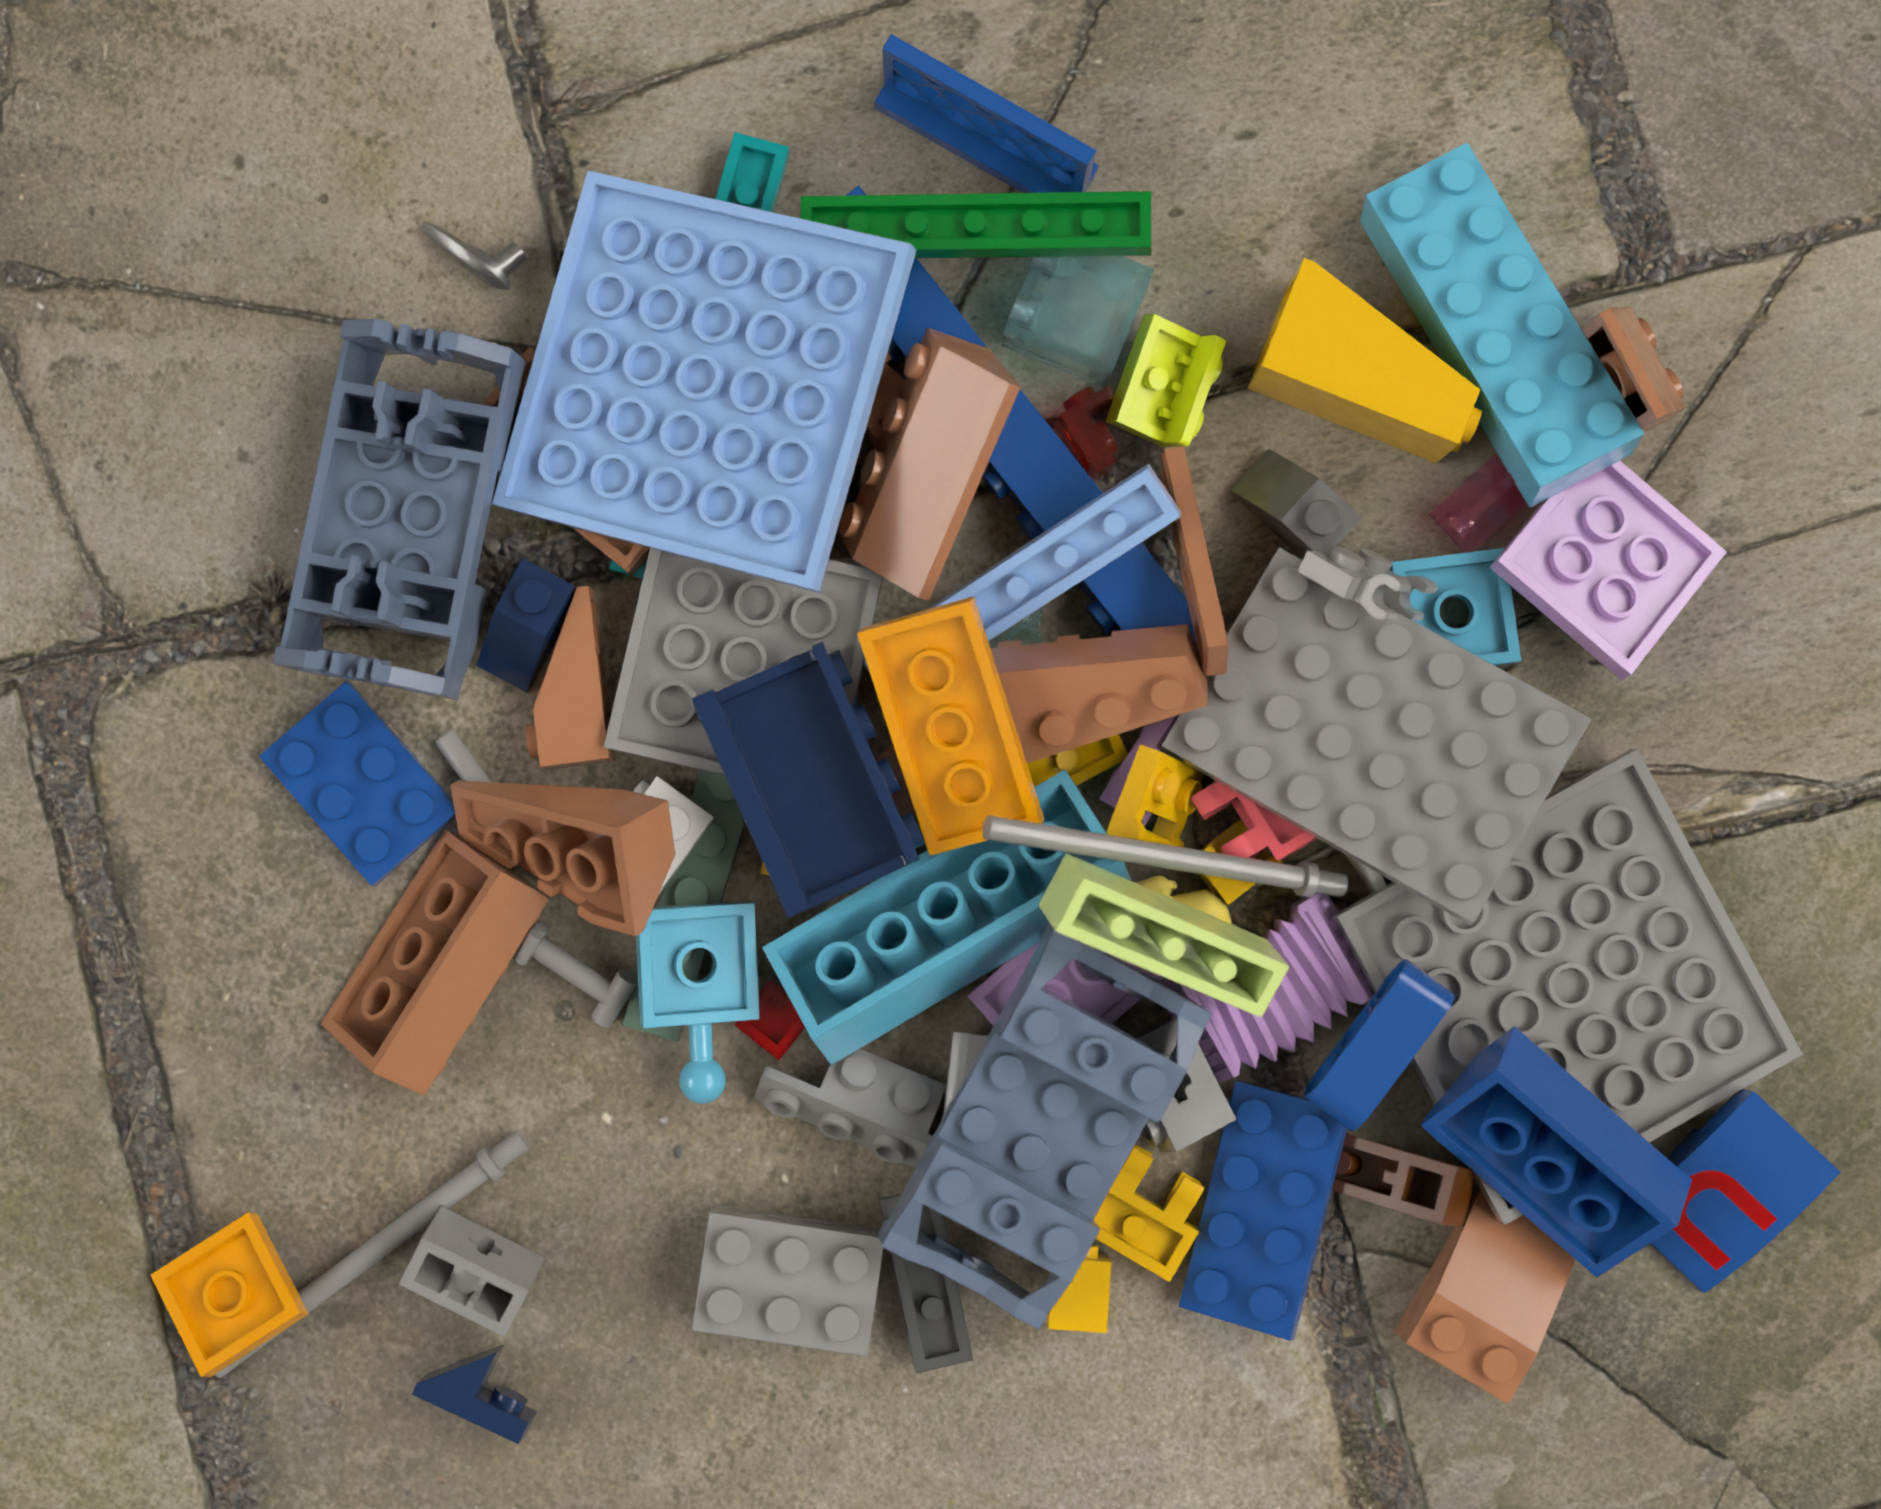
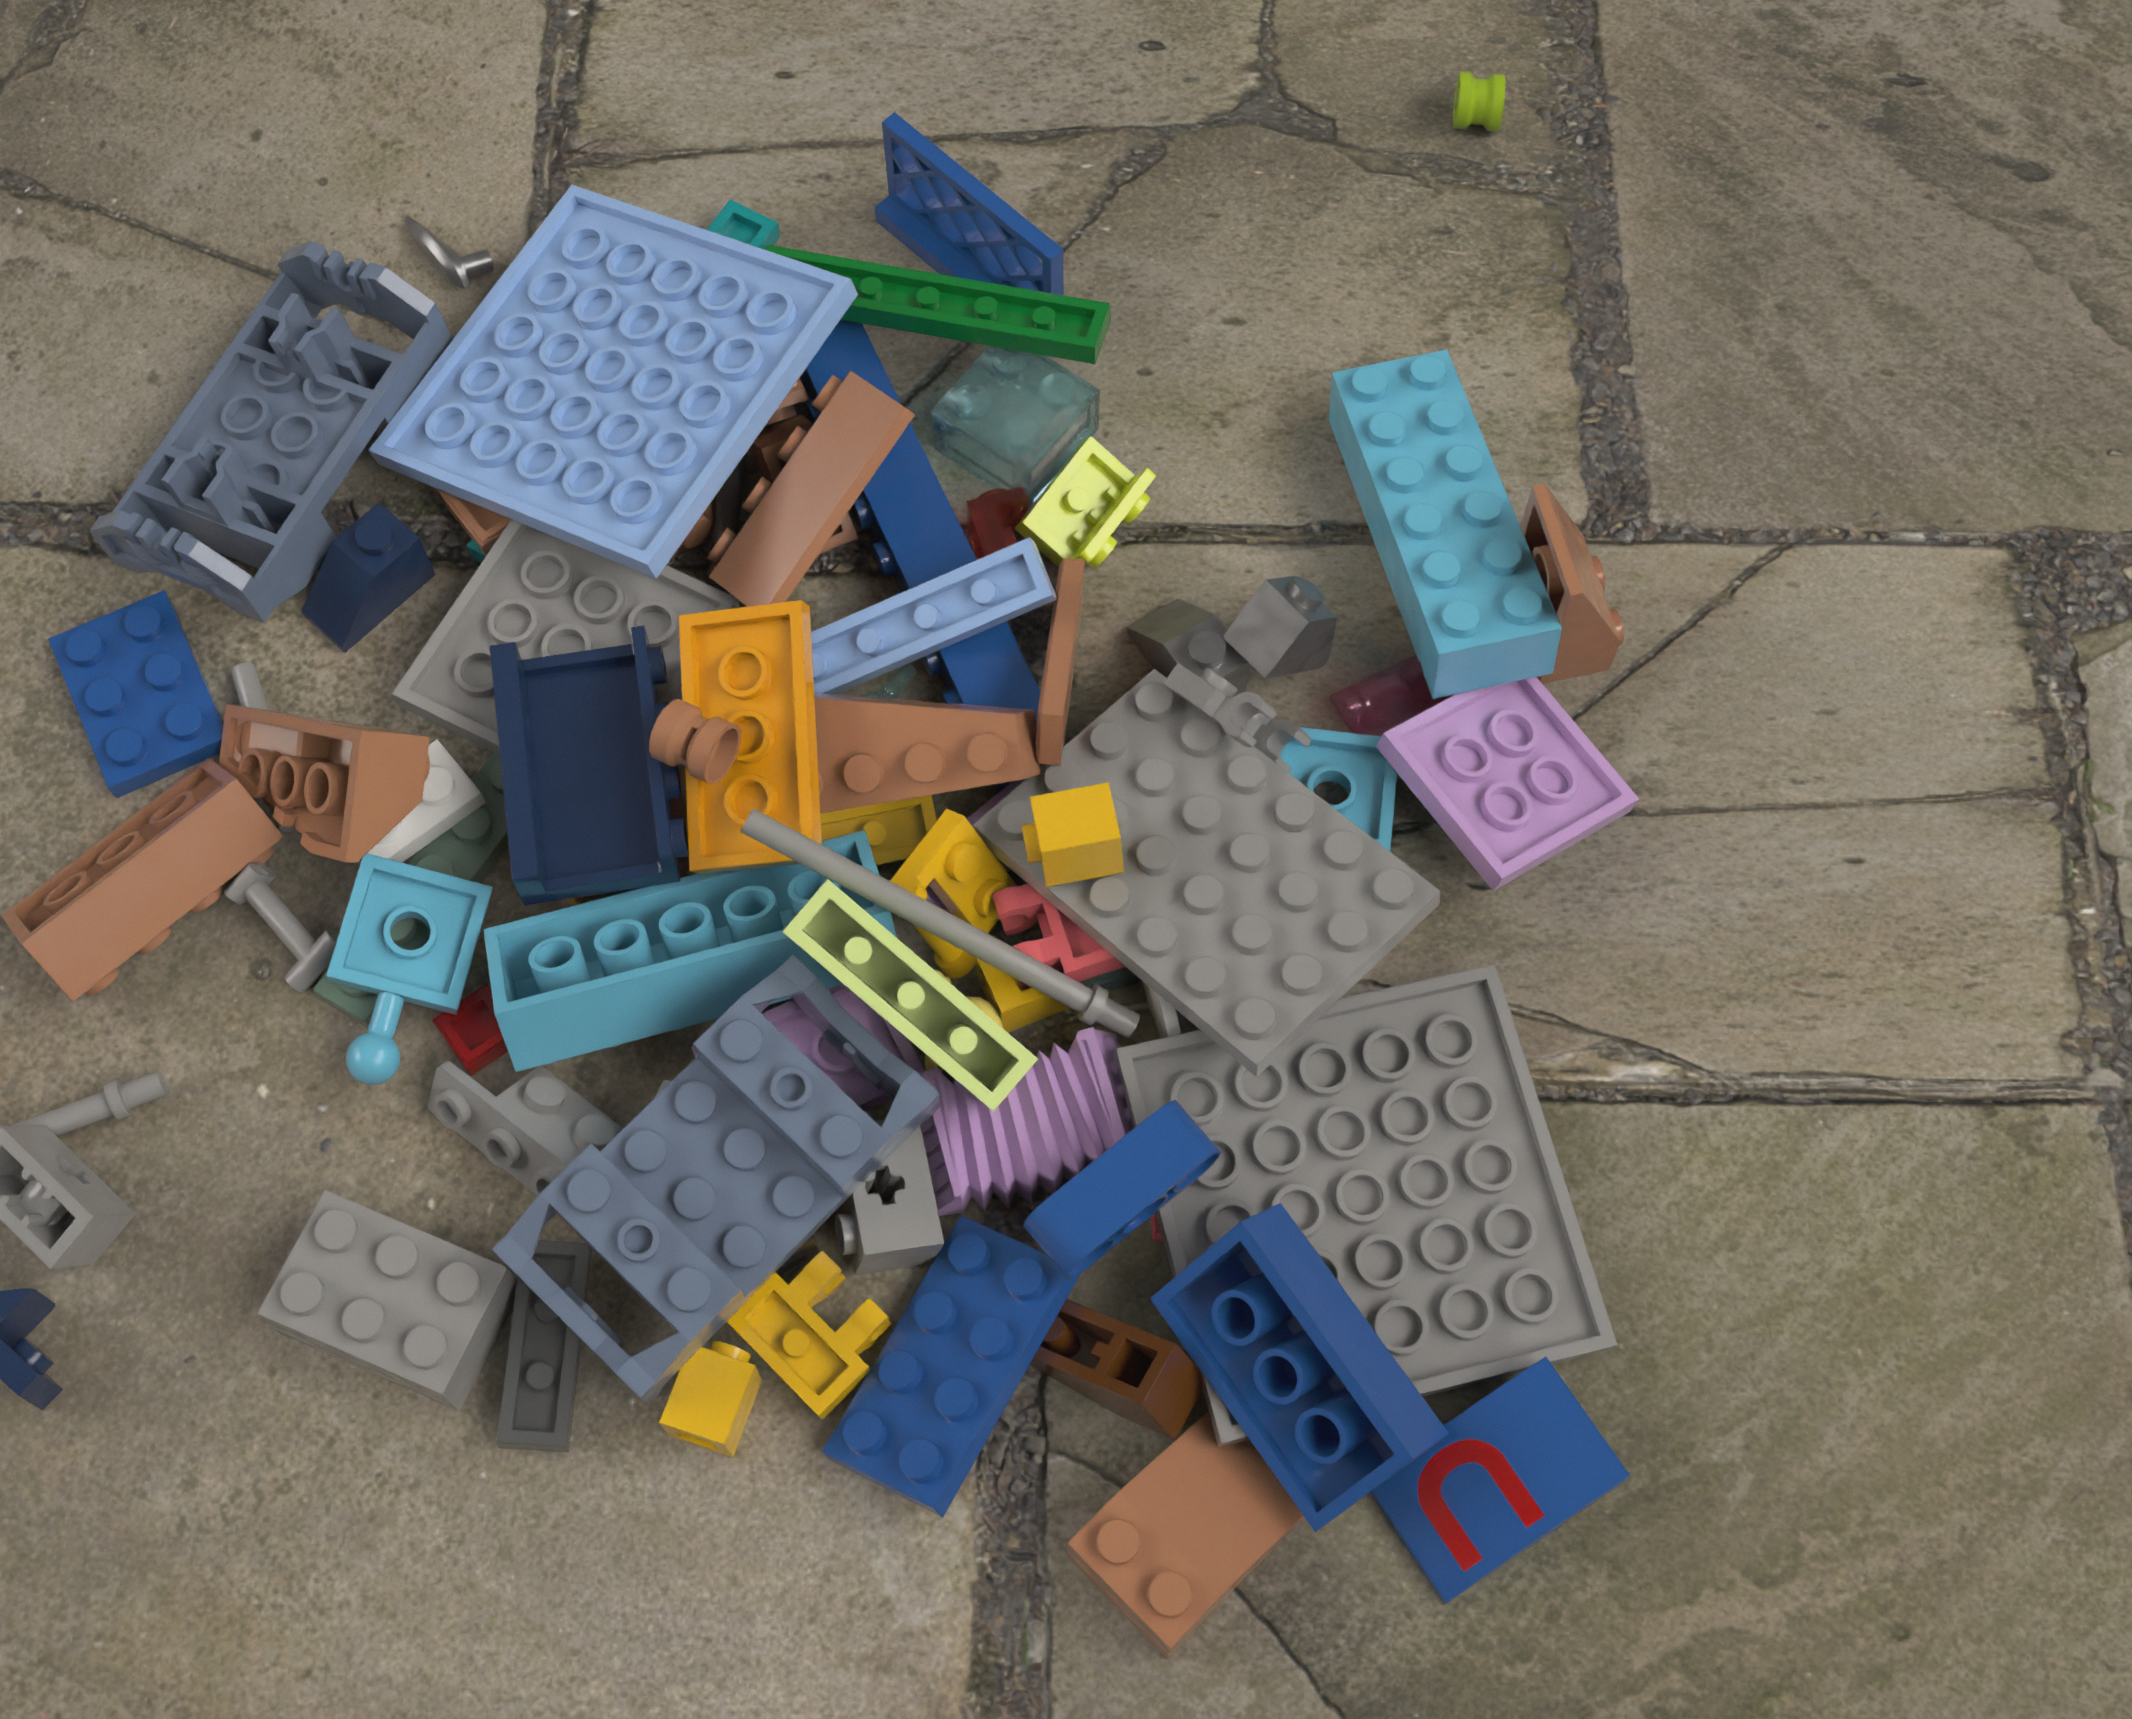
camera: 20 degrees right, 20 degrees down
(573, 697) = (384, 646): nougat slope -> none
(898, 749) = (692, 740): none -> nougat wheel
(1265, 752) = (1074, 835): none -> yellow brick
(1362, 370) = (1268, 512): yellow slope -> none
(1384, 481) = (1284, 628): none -> flat silver slope

